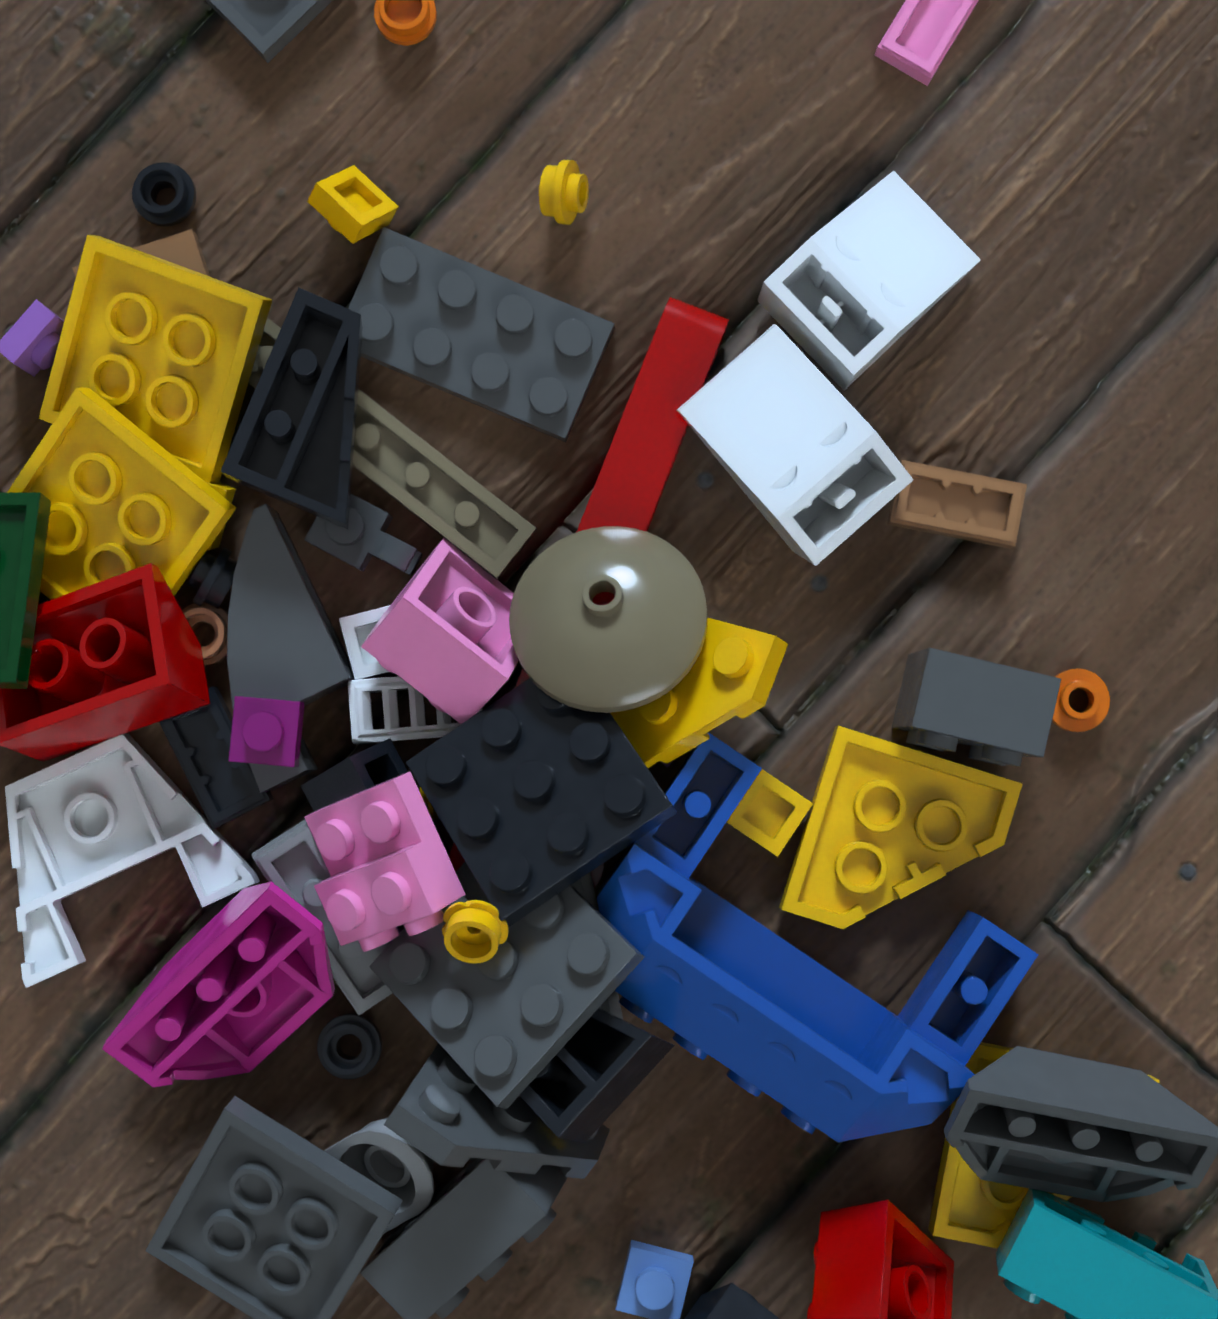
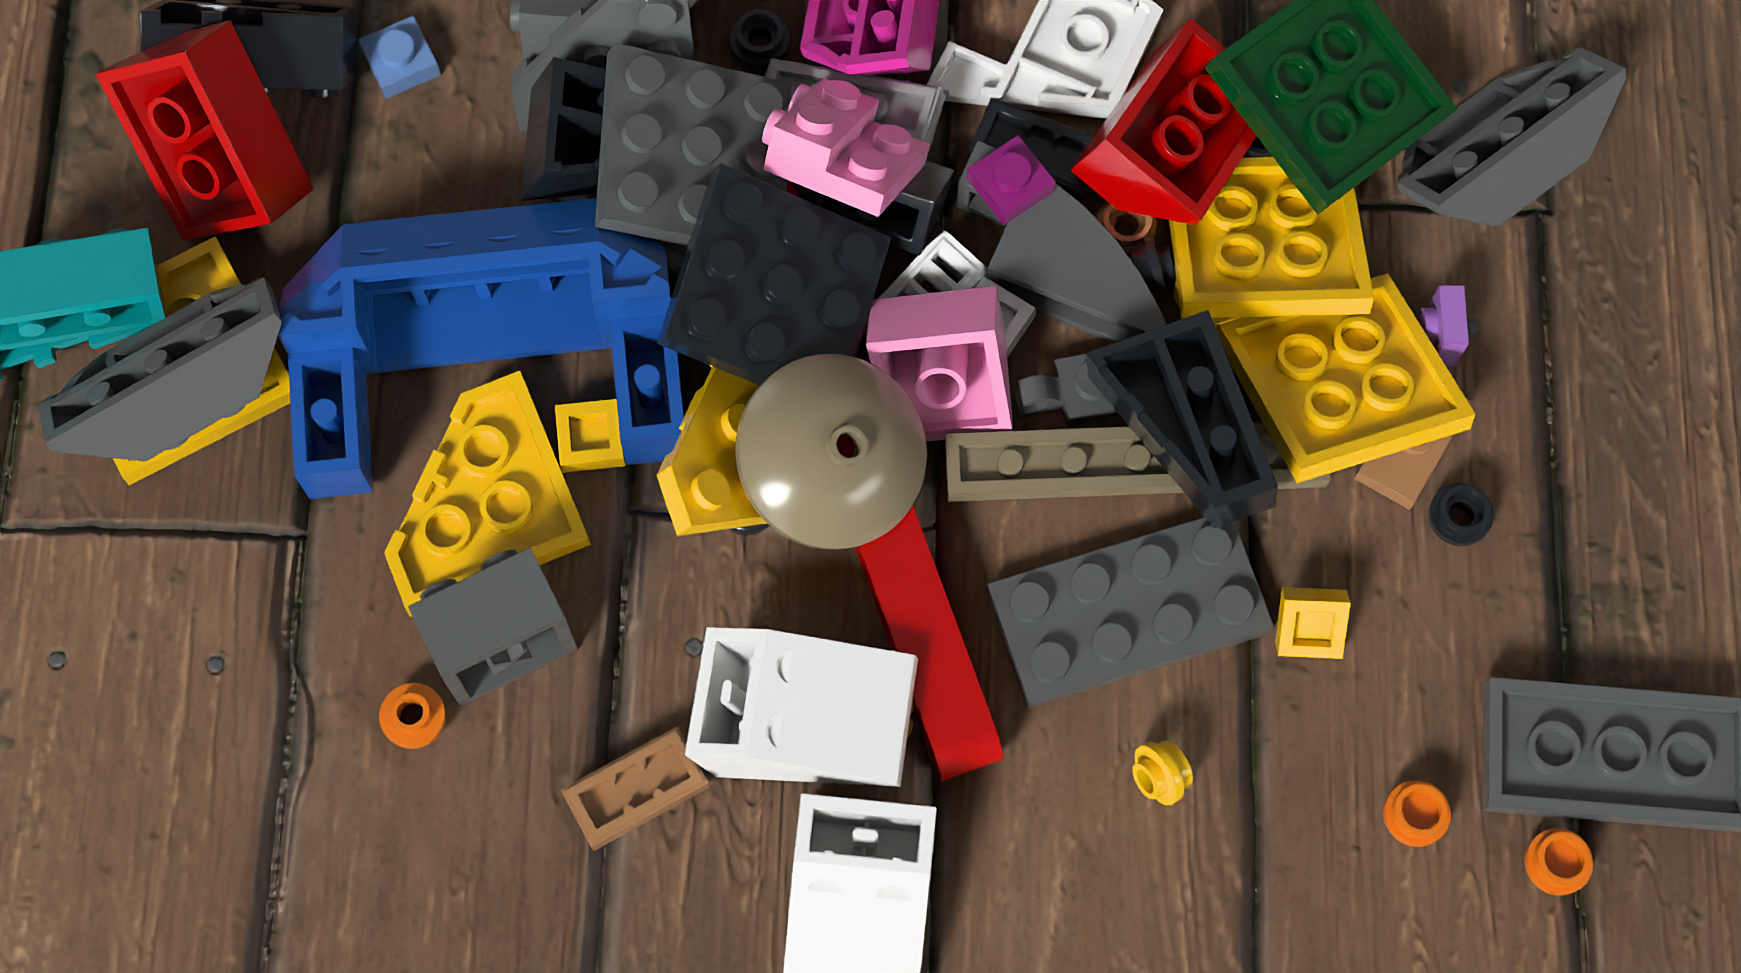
camera: 130 degrees right, 15 degrees down
(473, 931) = (735, 143): yellow plate -> none

